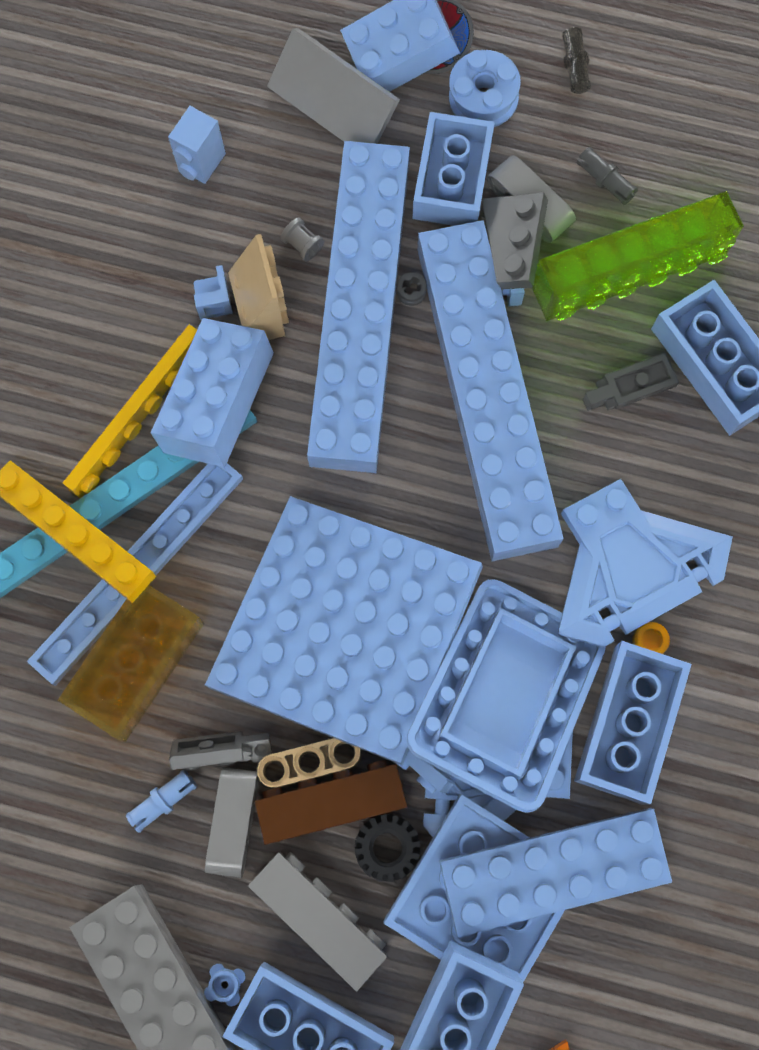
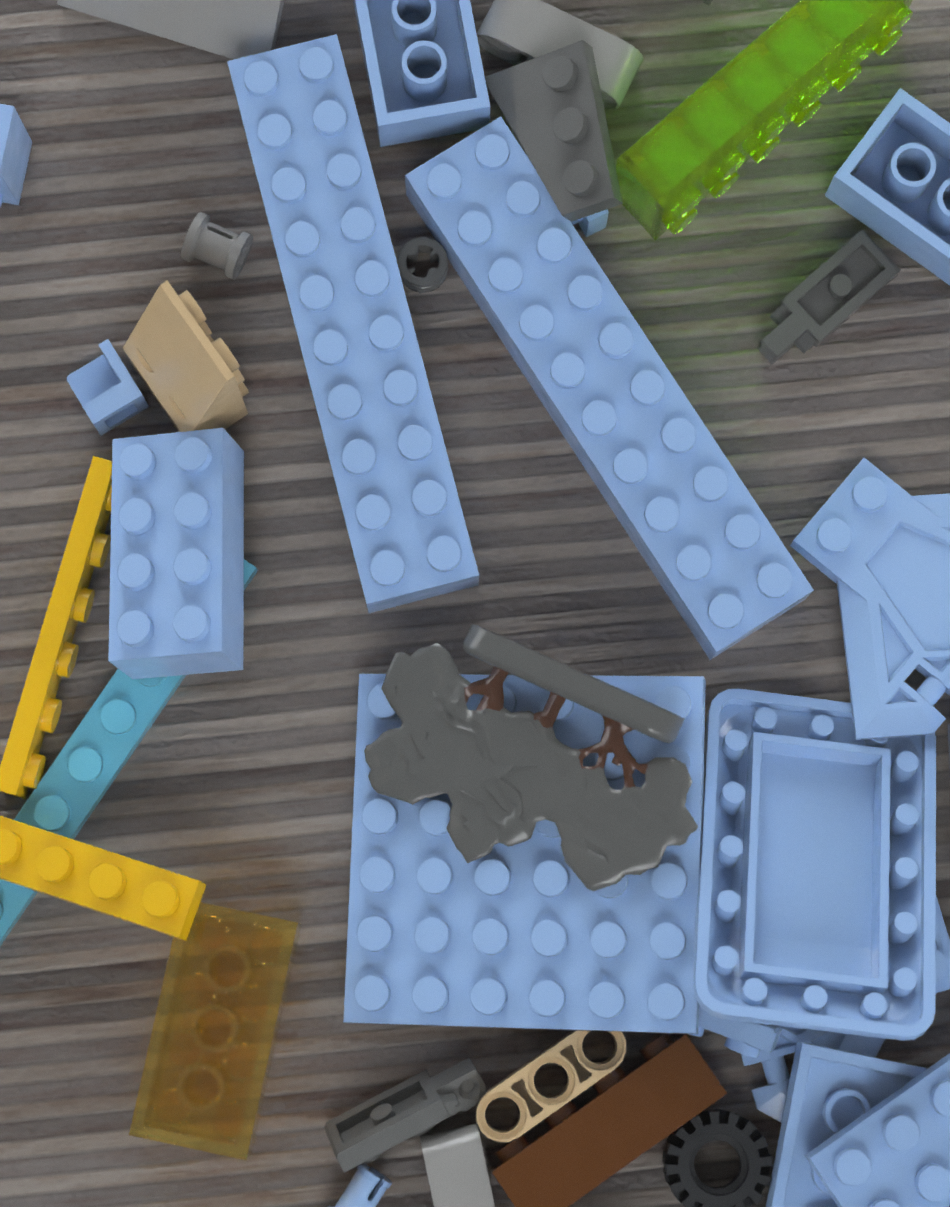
camera: 25 degrees left, 5 degrees up
(152, 549) = (174, 843): light blue plate -> none
(353, 575) = (513, 771): none -> dark grey plant

